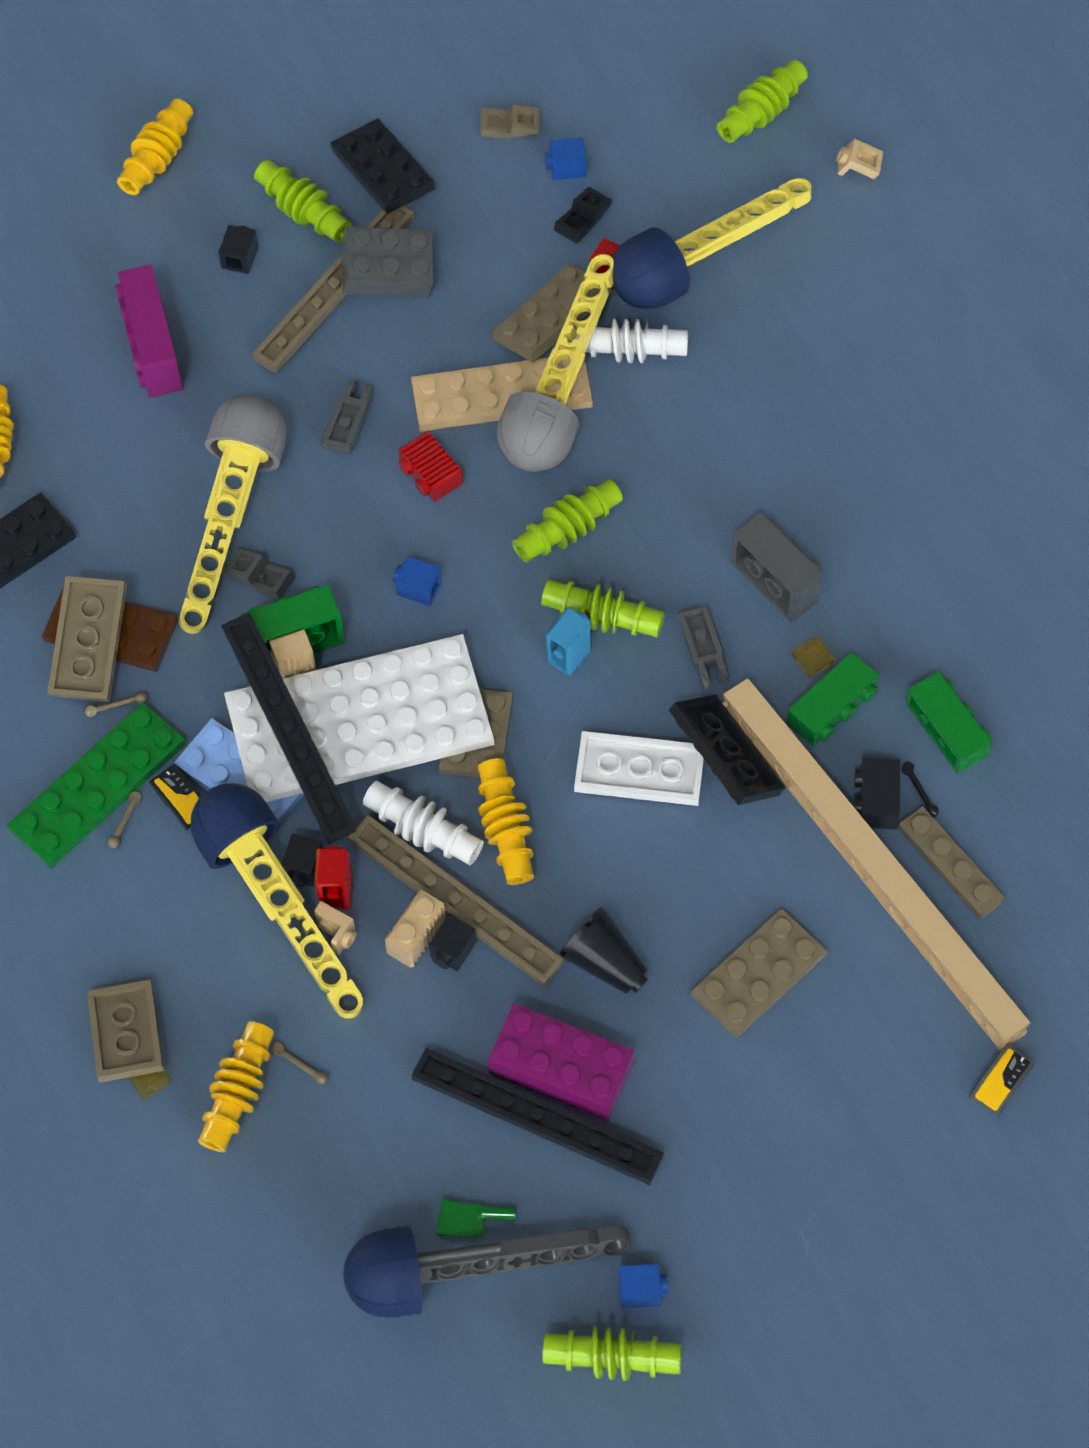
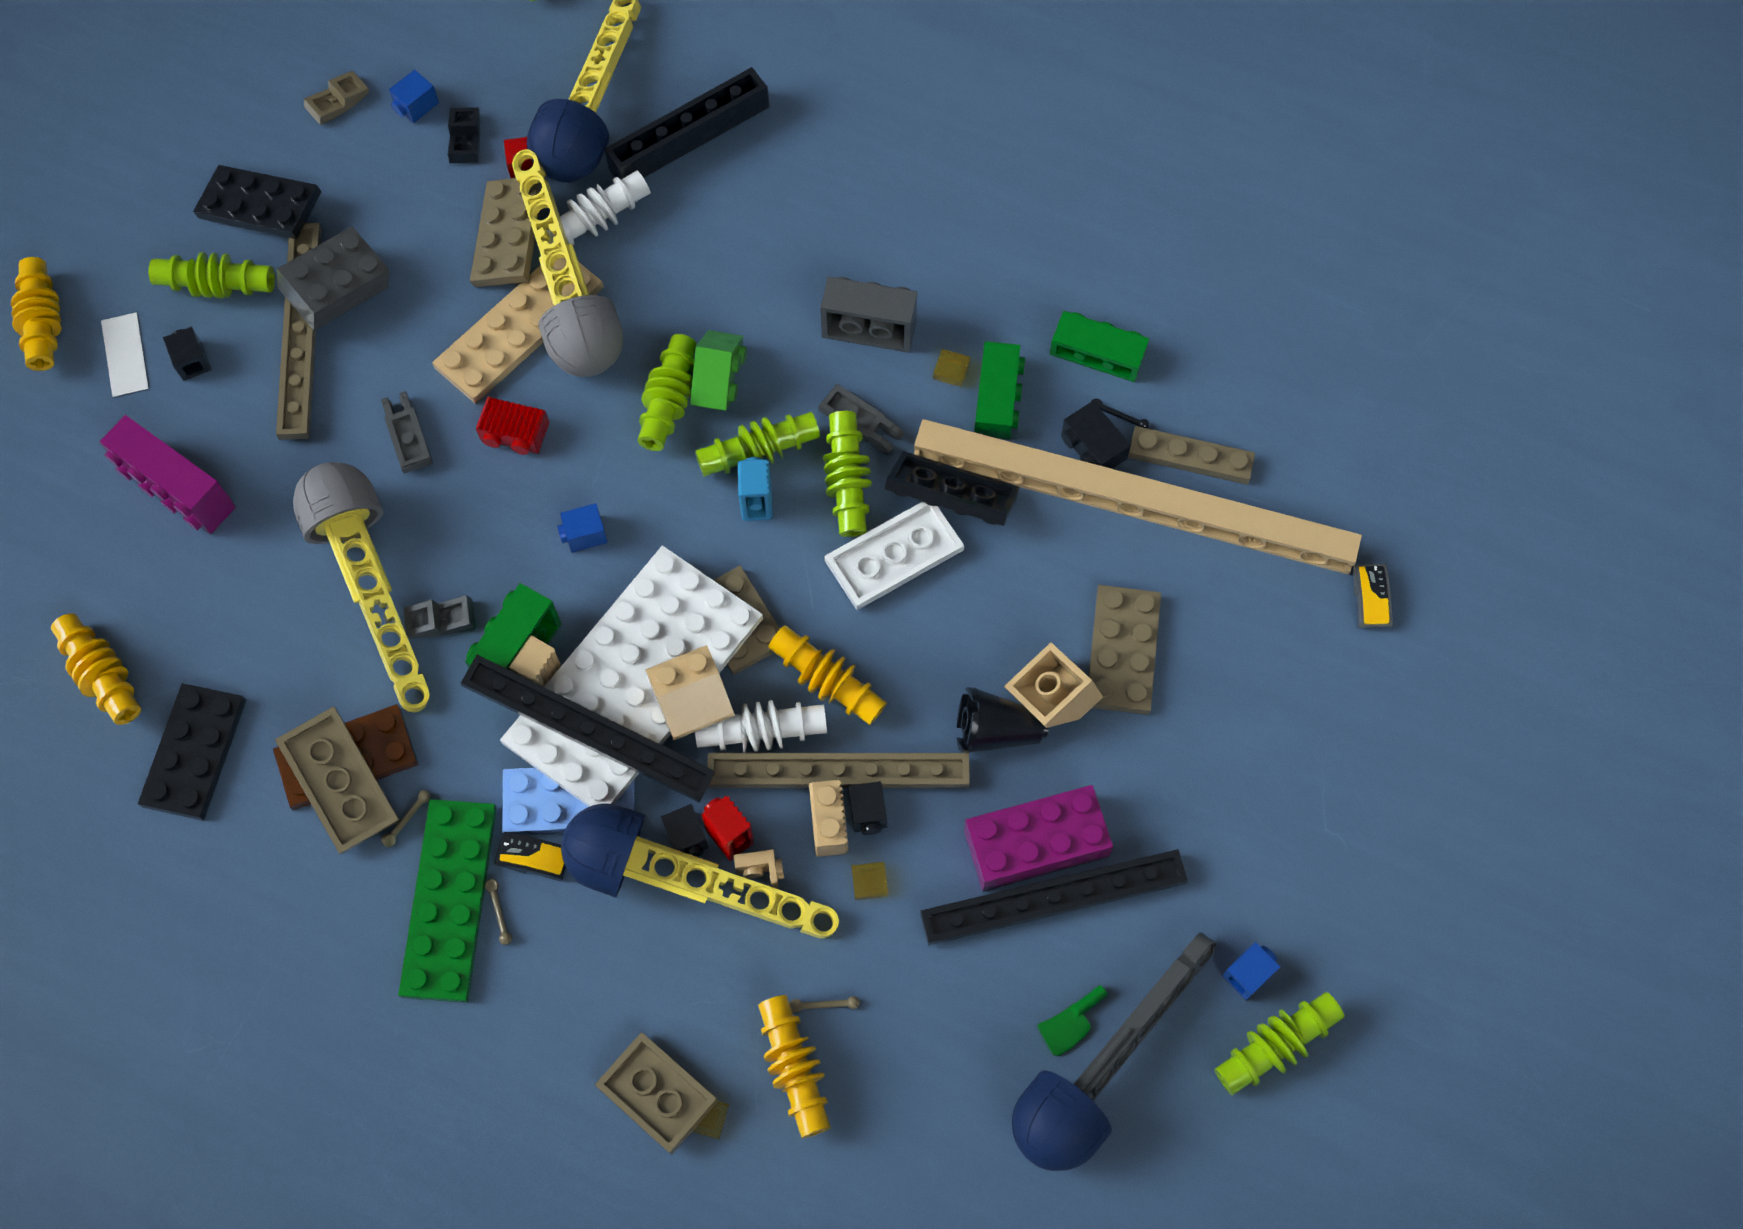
camera: 40 degrees left, 5 degrees up
(196, 220) = (124, 354): none -> white sticker
(385, 755) = (690, 692): none -> tan slope
(409, 999) = (869, 880): none -> clear yellow tile
(617, 526) = (715, 364): none -> bright green brick
(651, 679) = (845, 474): none -> lime piece
(669, 958) = (1054, 688): none -> tan slope
(762, 322) = (689, 126): none -> black brick

